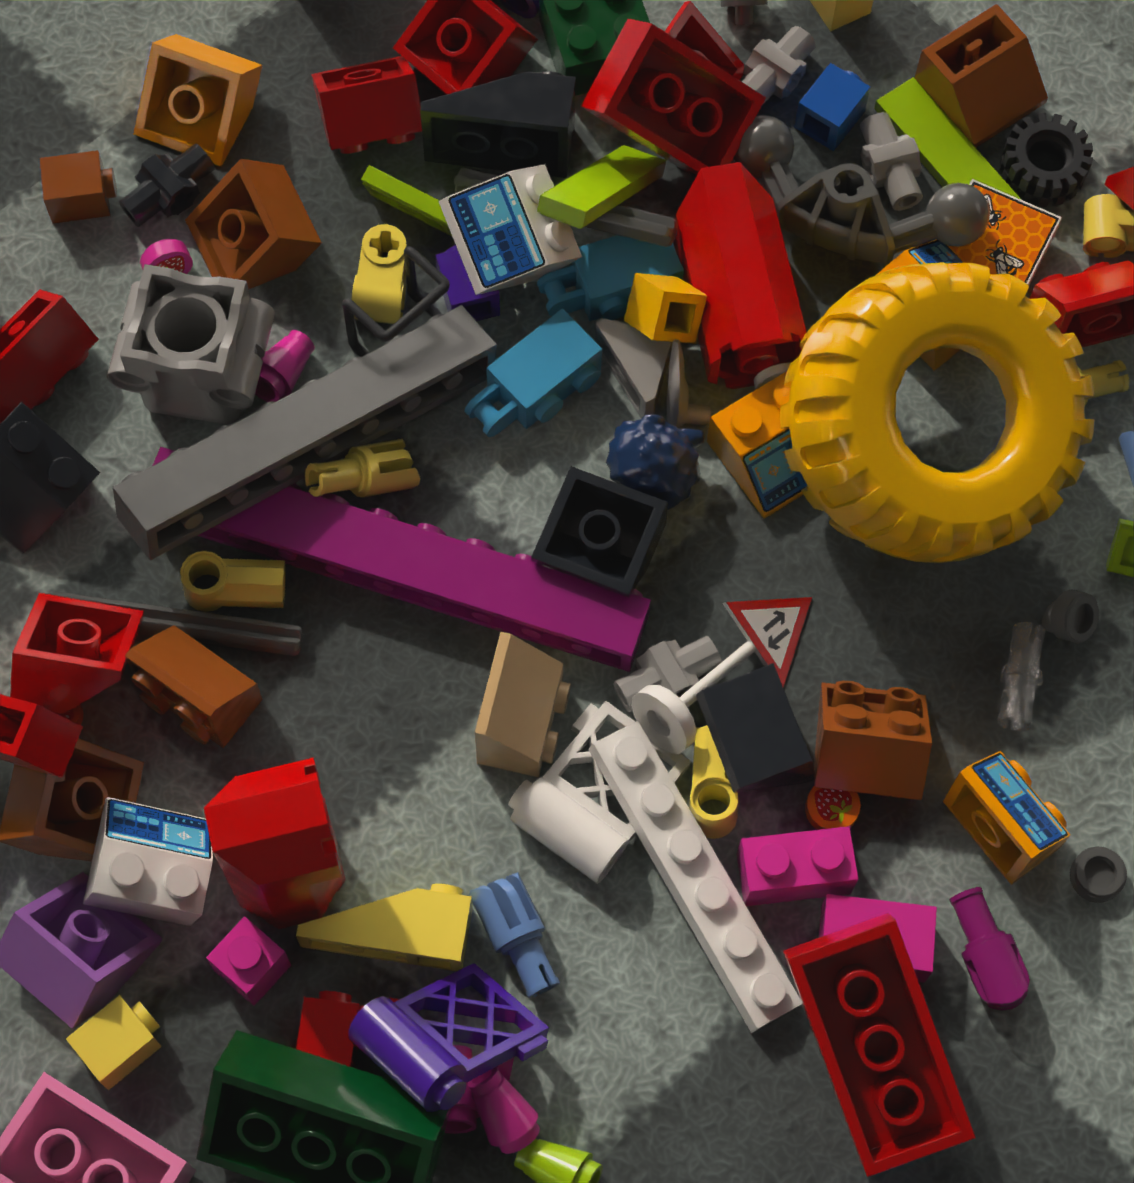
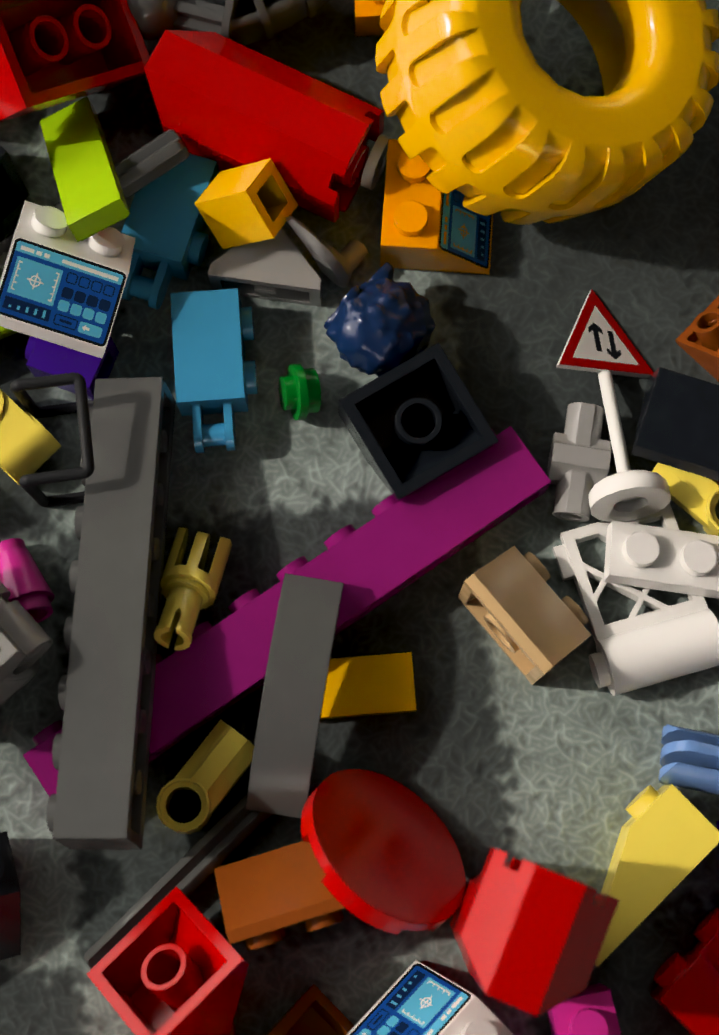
camera: 50 degrees left, 10 degrees up
(267, 712) = (383, 852): none -> red tile
(333, 586) = (293, 695): none -> dark grey slope
(380, 639) = (369, 686): none -> yellow tile
(565, 448) = (300, 391): none -> green plate

